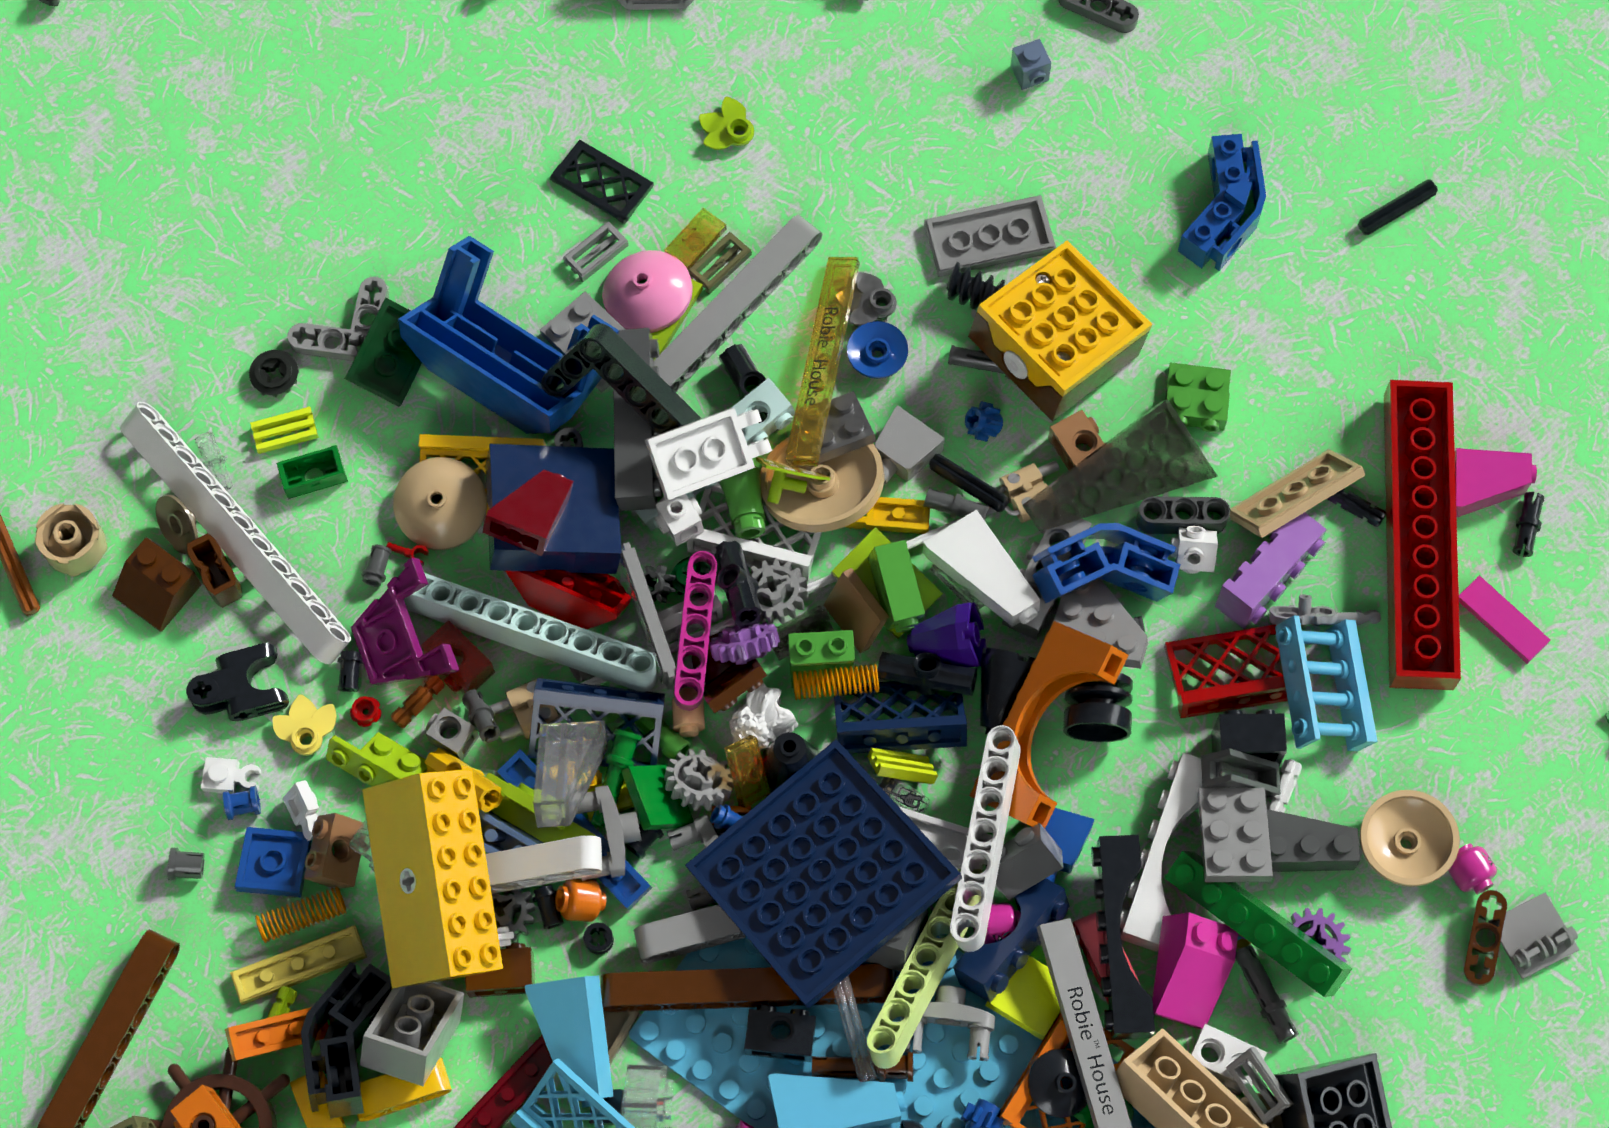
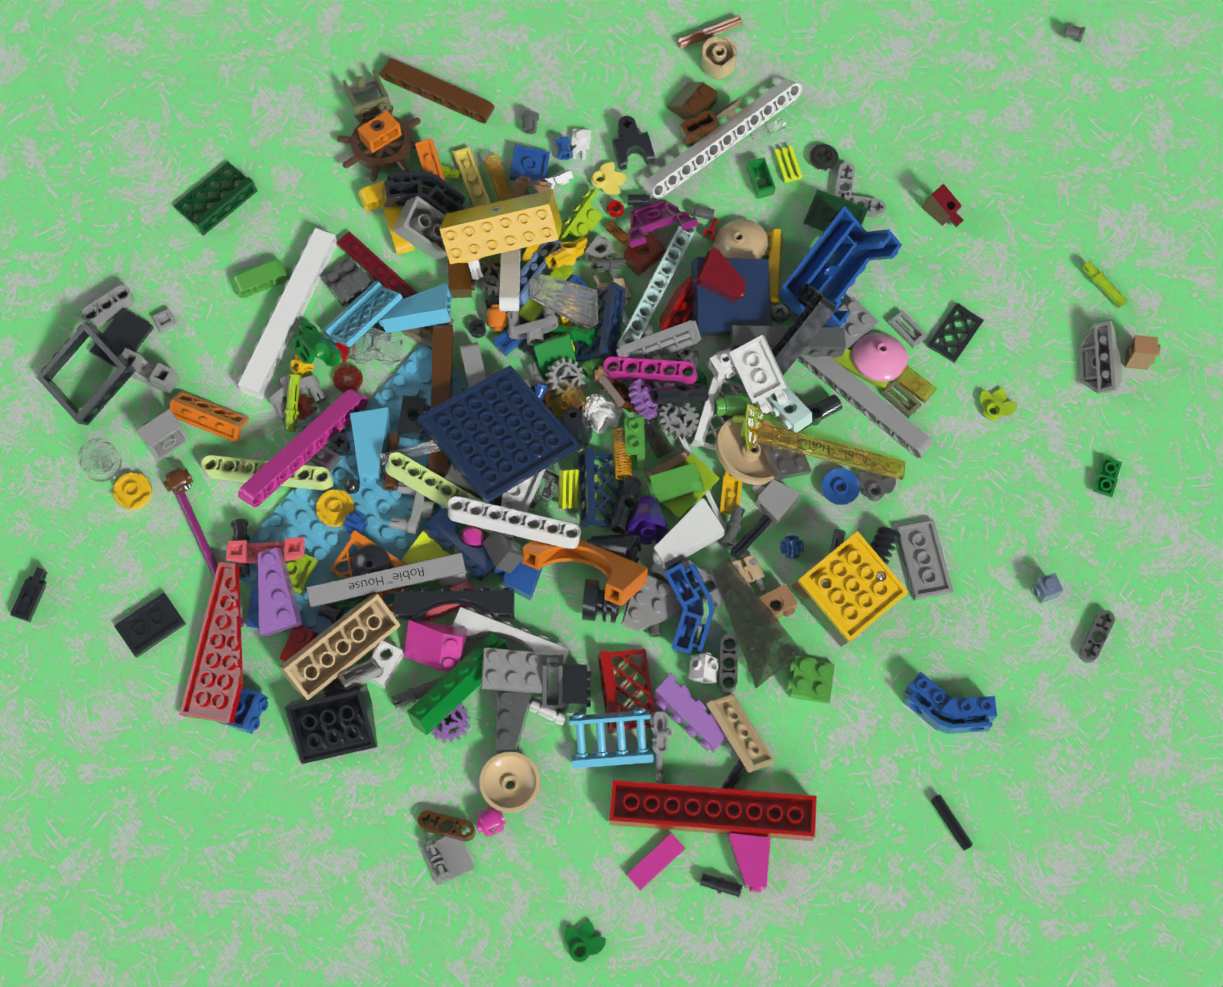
camera: 90 degrees right, 0 degrees up
(379, 188) = (943, 207): none -> dark red torso

